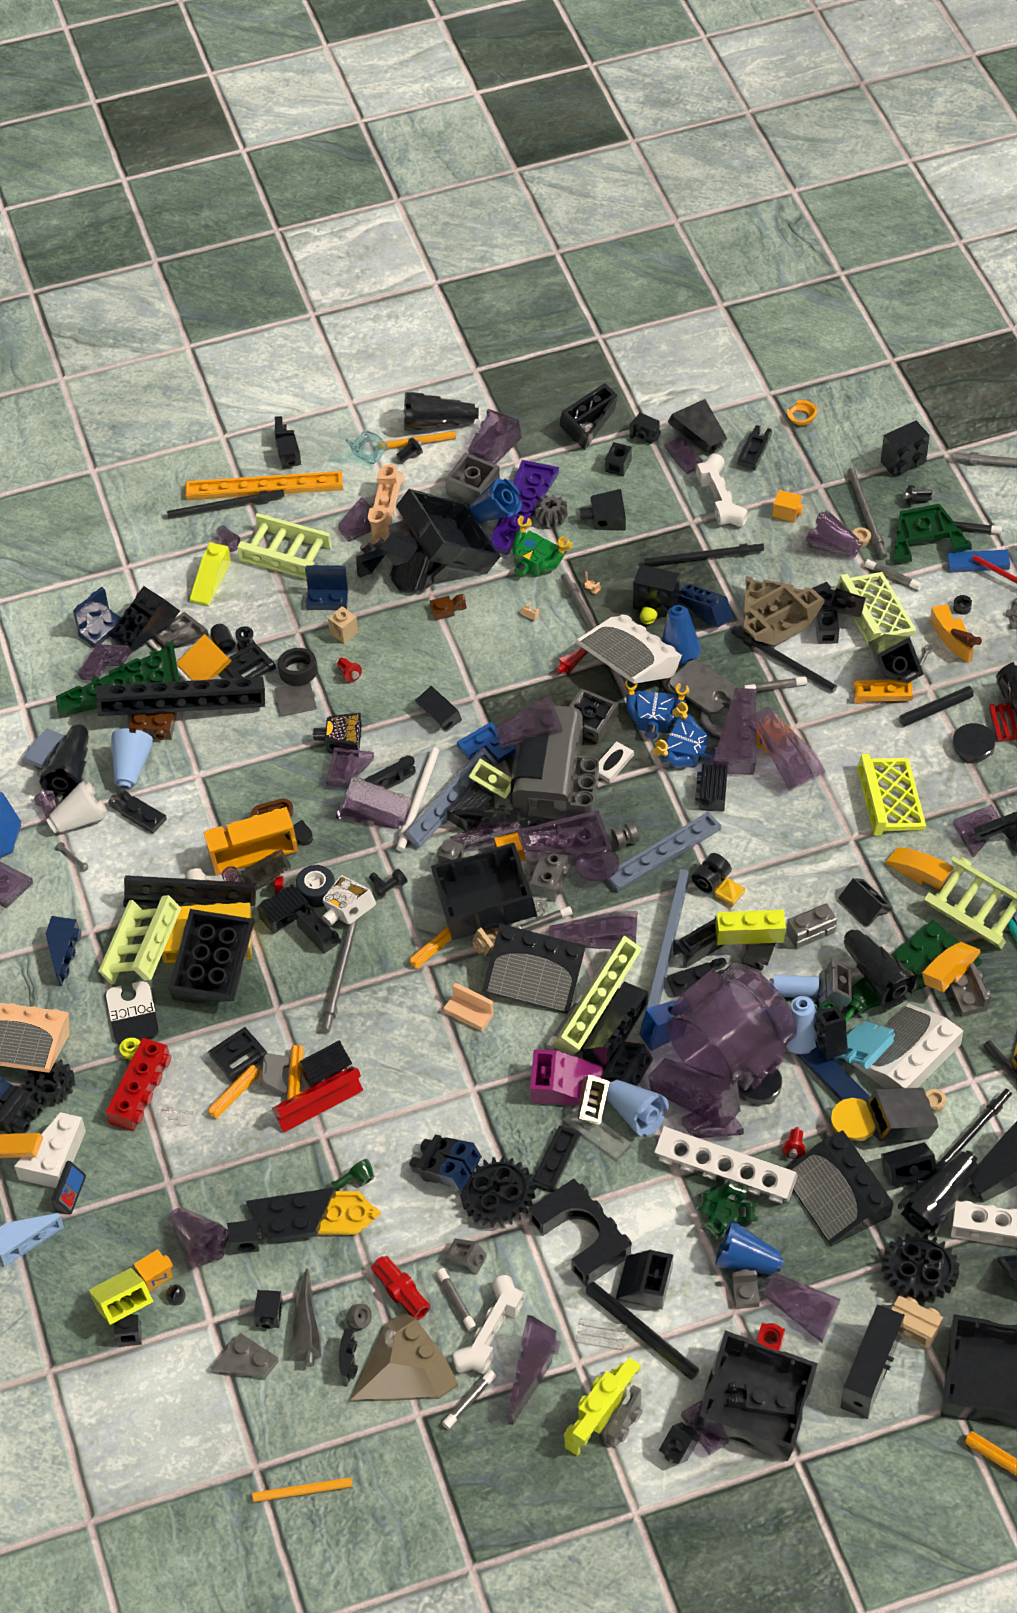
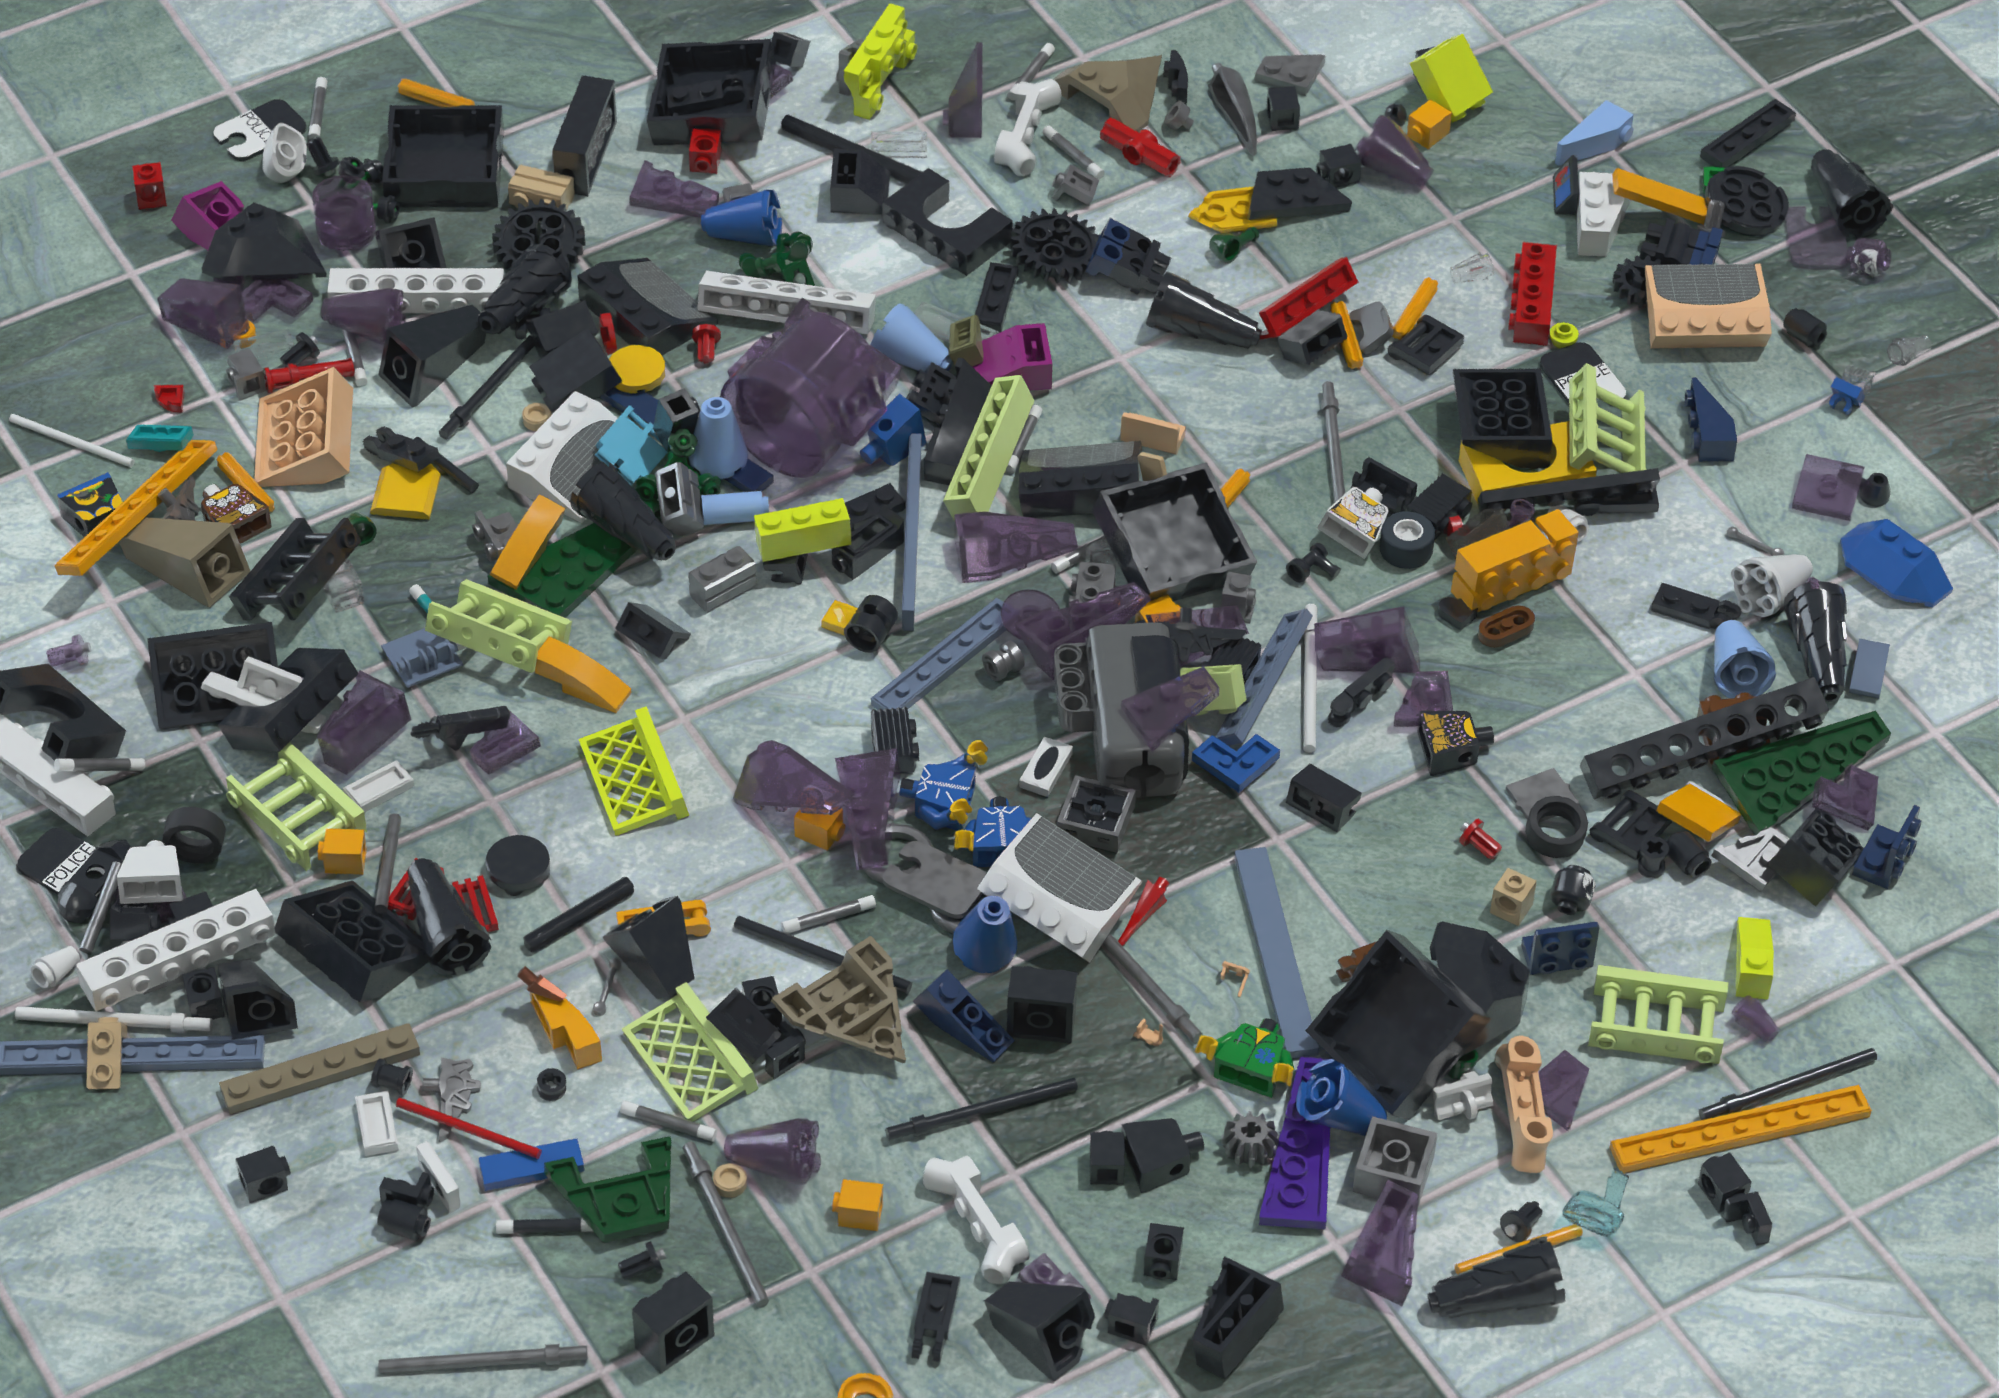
camera: 165 degrees right, 5 degrees down
(304, 625) = (1572, 889): none -> black head
(412, 1099) = (1197, 314): none -> black cone
(500, 624) = (1276, 951): none -> sand blue tile
(637, 511) = (1107, 1158): none -> black brick
(872, 1163) = (607, 333): none -> red tile

